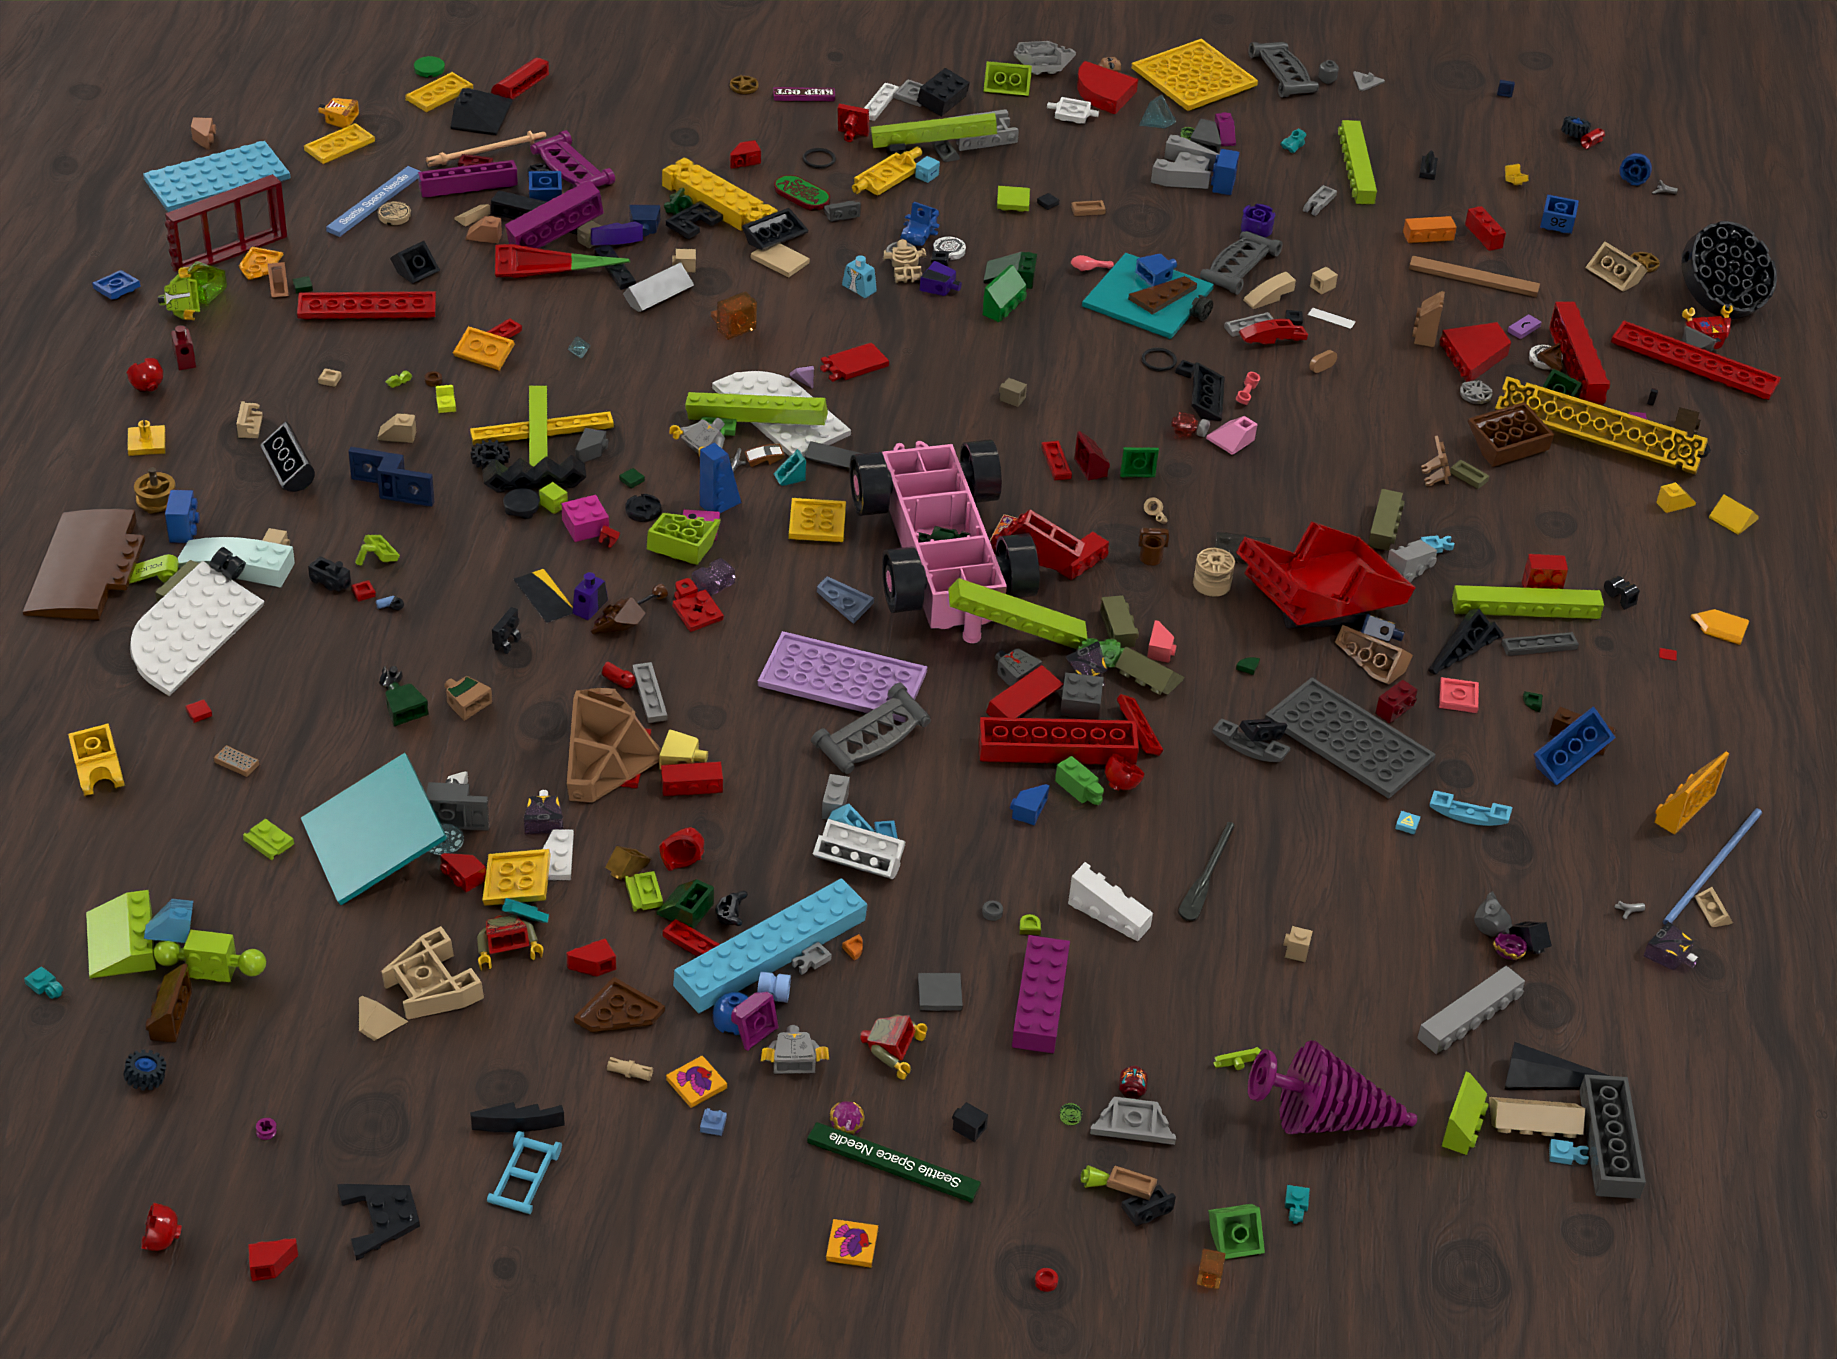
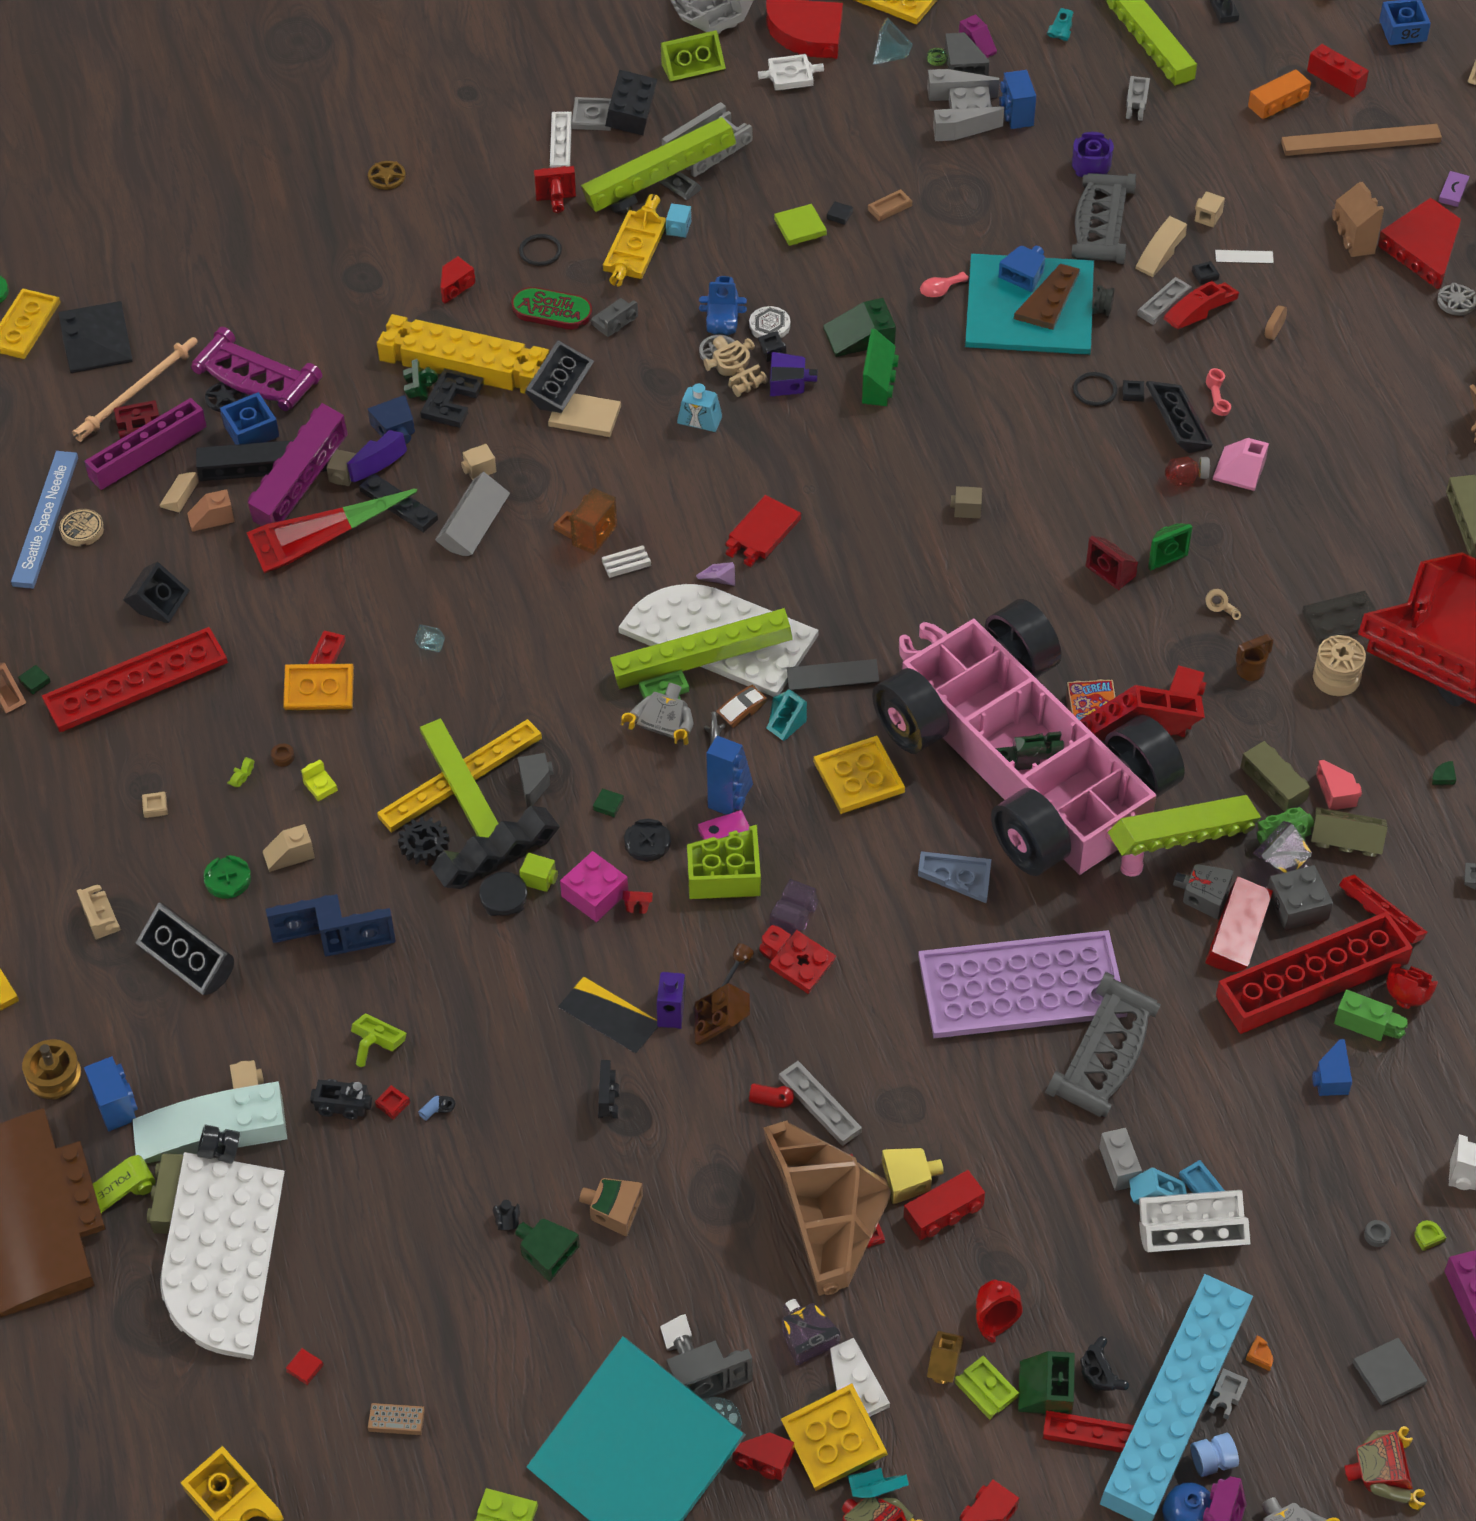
camera: 20 degrees left, 10 degrees up
(347, 432) = (227, 877): none -> green tile
(522, 79) = (115, 267): red brick -> none
(746, 349) = (625, 558): none -> white tile
(803, 94) = (466, 163): tile -> none
(1056, 460) = (1069, 577): red tile -> none

